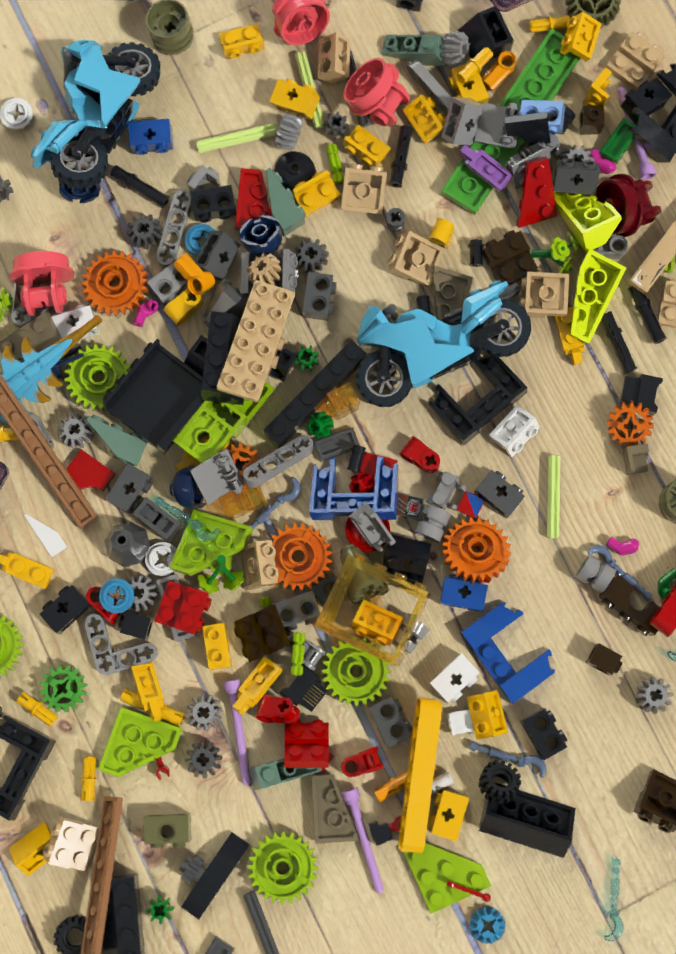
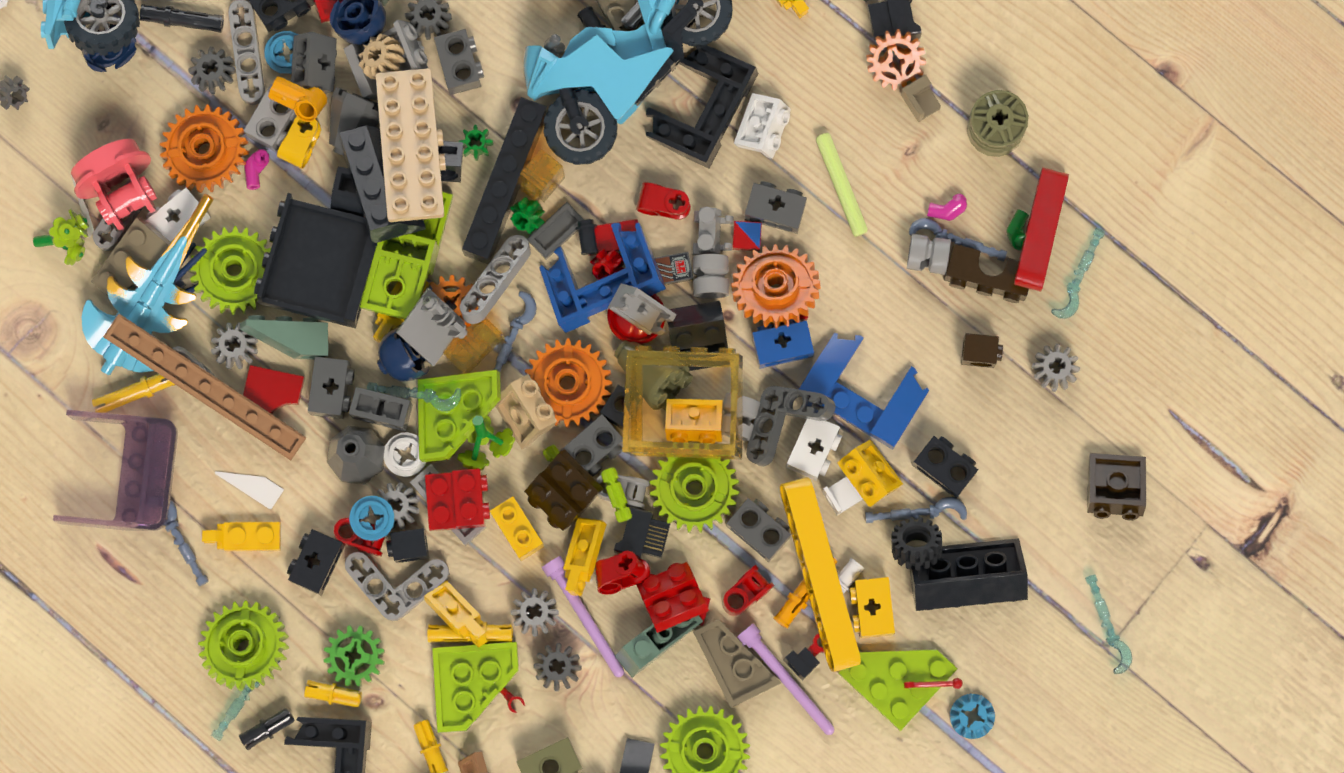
camera: 20 degrees left, 0 degrees up
(443, 640) = (783, 407): none -> dark grey beam

